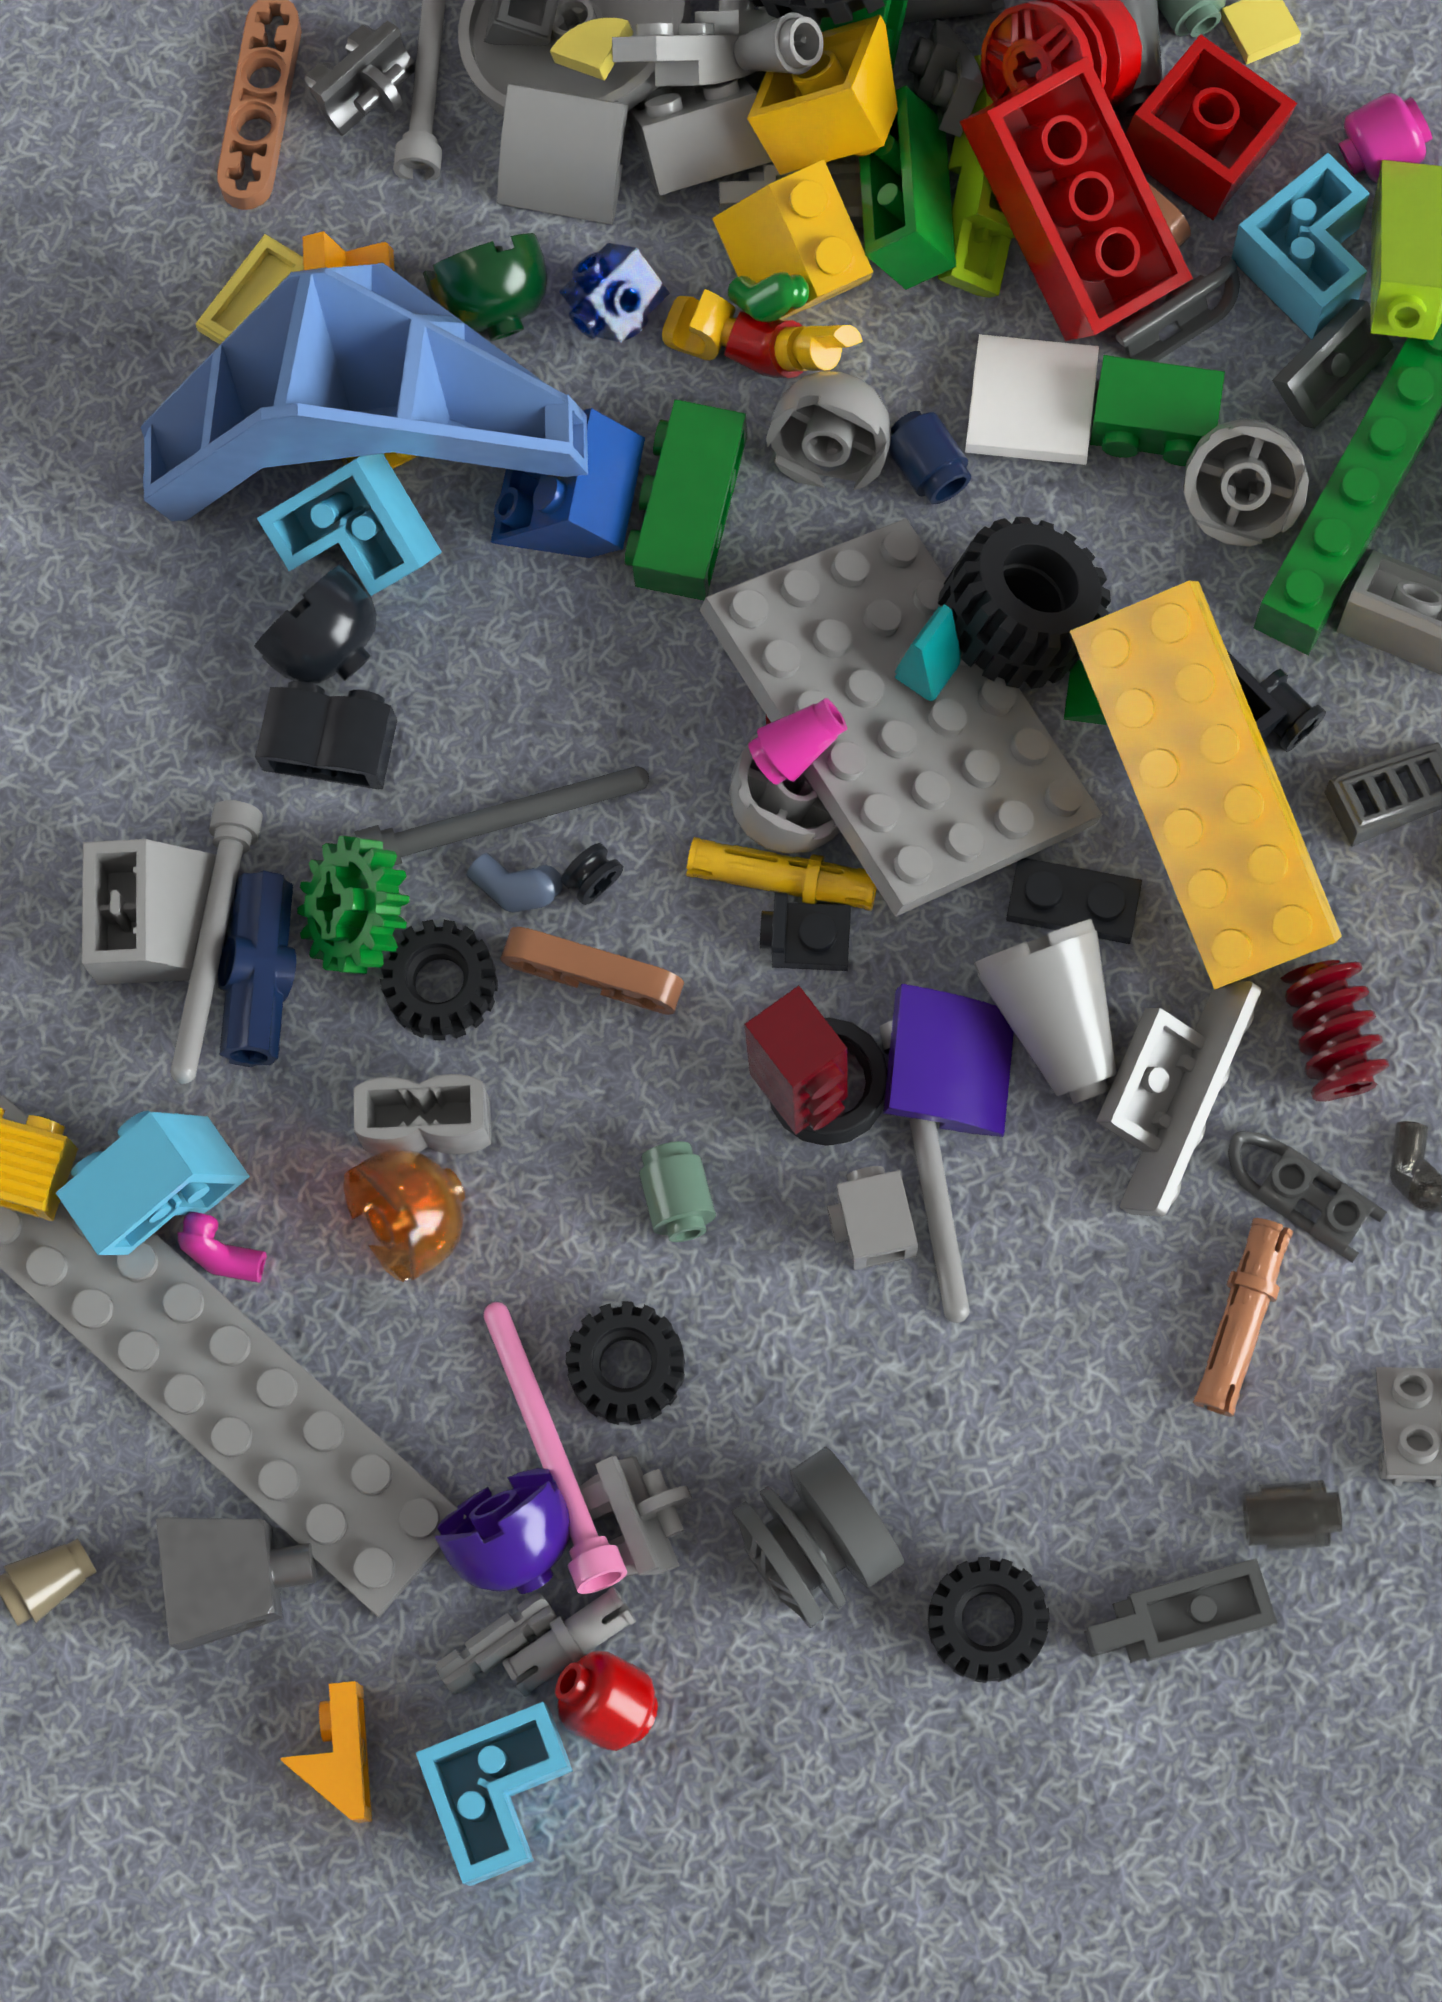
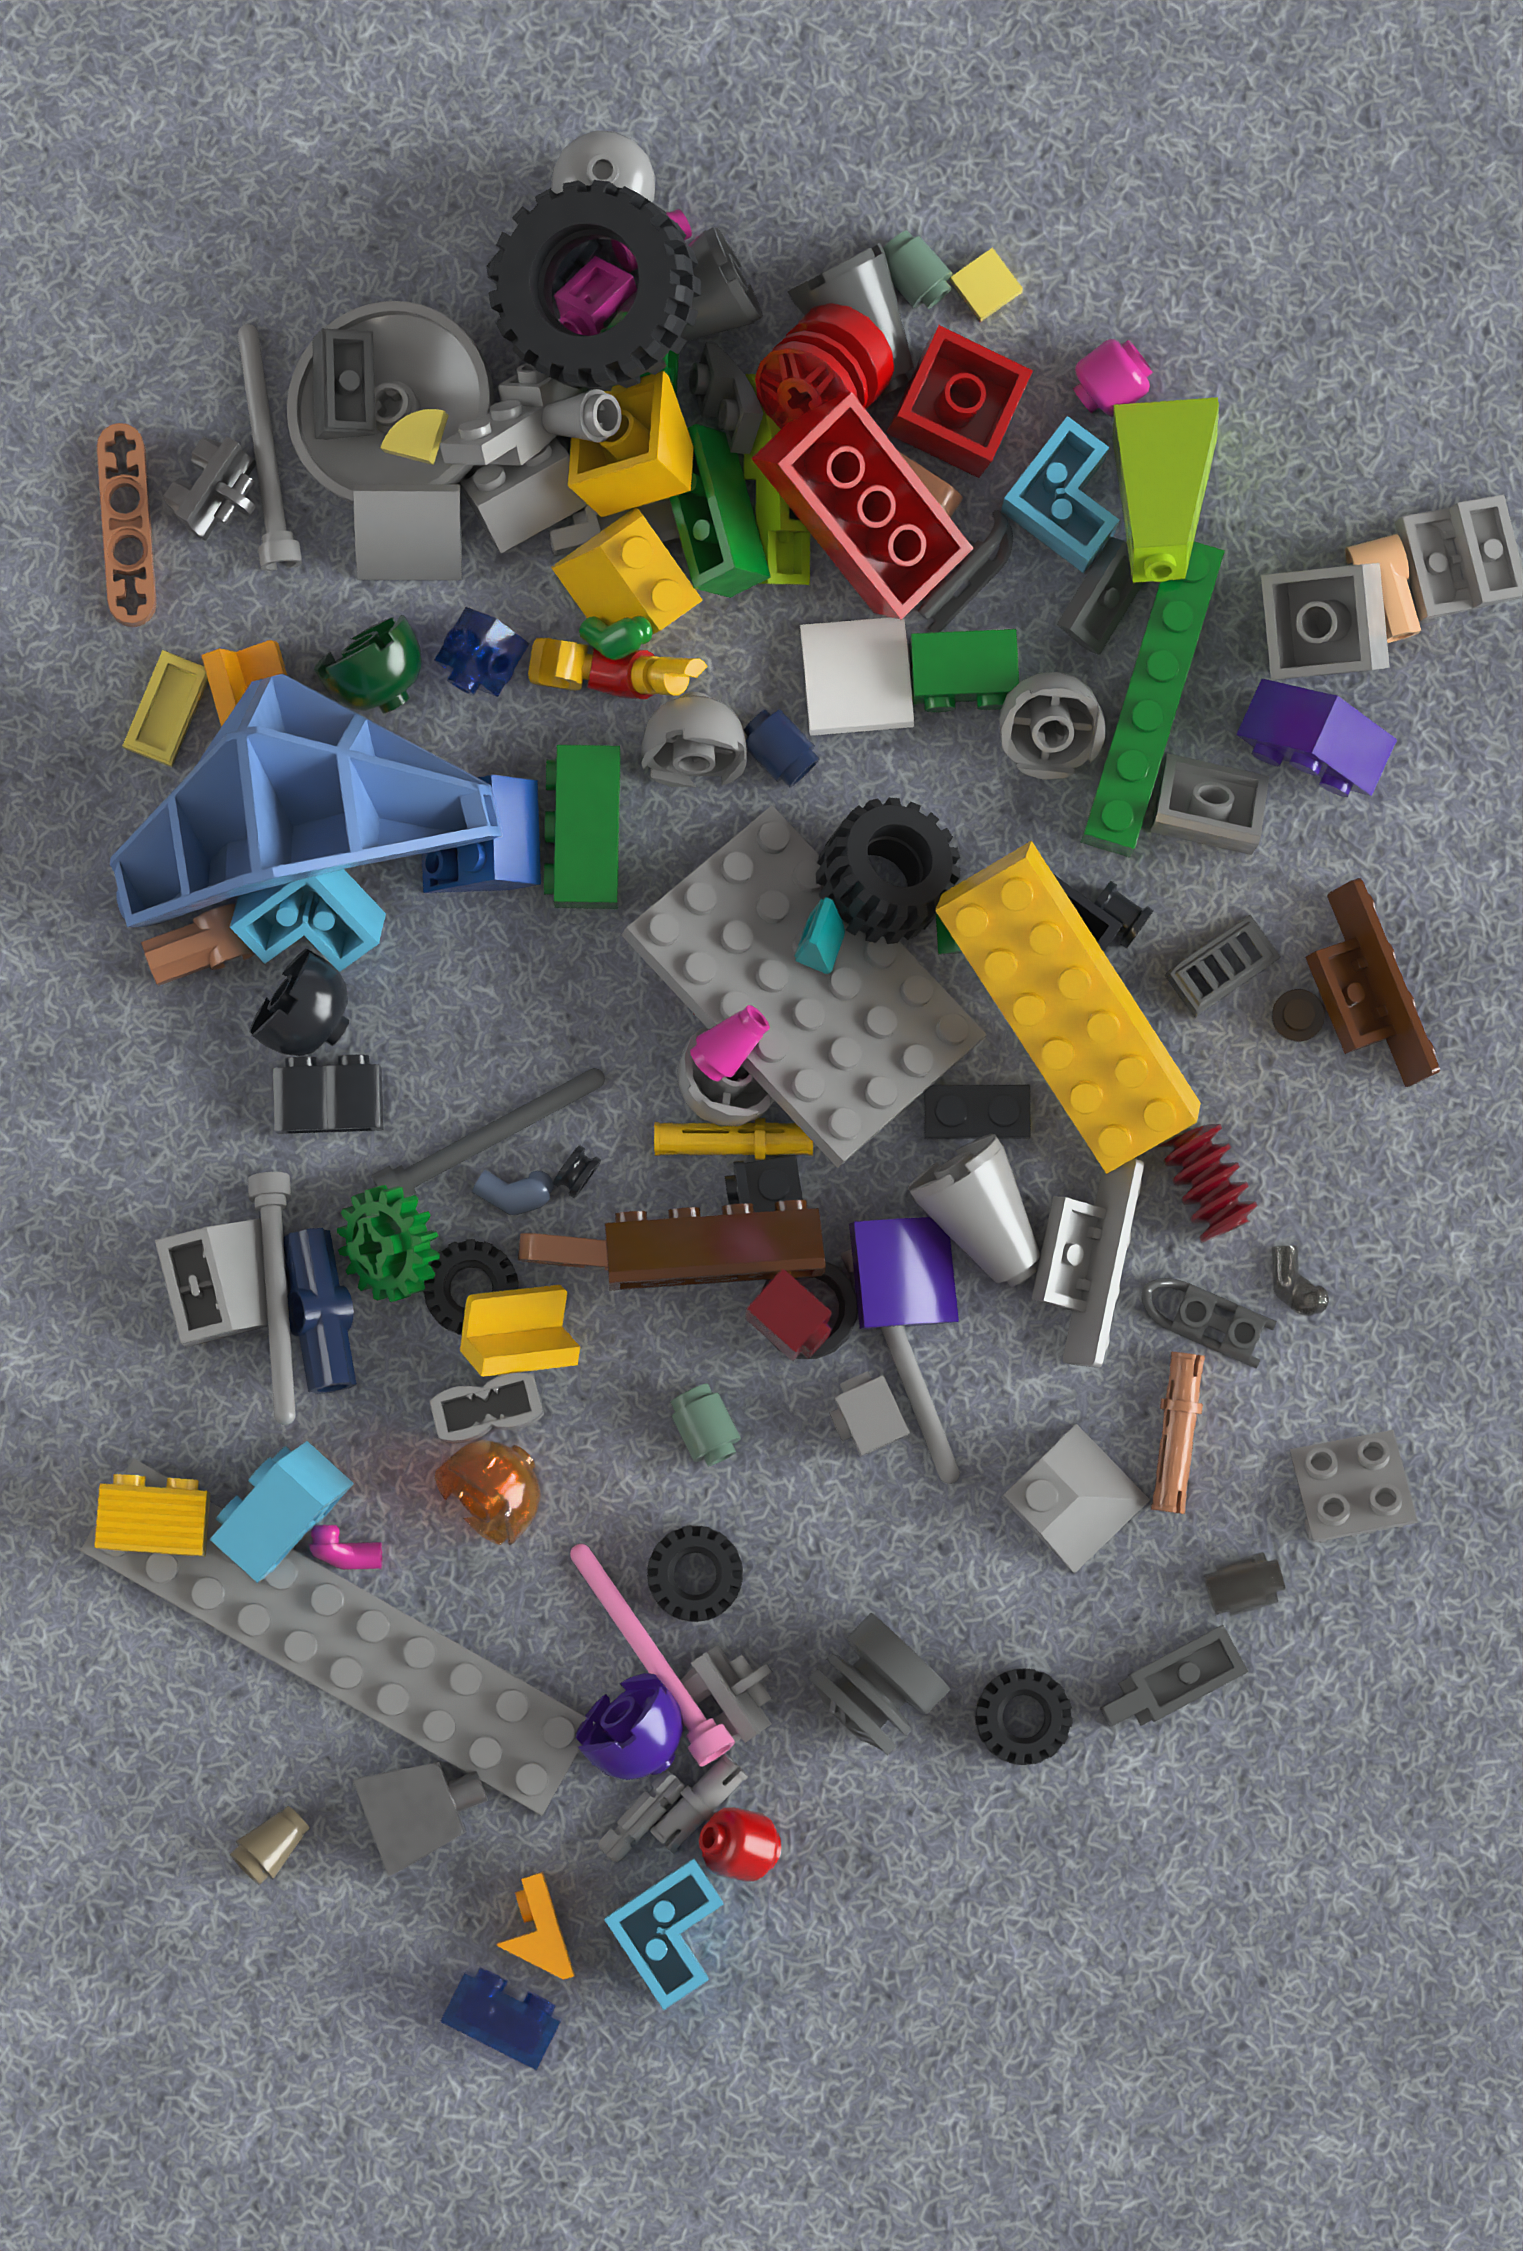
camera: 25 degrees left, 10 degrees up
(220, 547) = (195, 946): none -> nougat piece
(265, 1855) = (502, 2019): none -> clear blue brick
(479, 1031) = (517, 1331): none -> yellow panel
(719, 976) = (714, 1247): none -> reddish brown slope
(1101, 1369) = (1075, 1498): none -> light grey slope

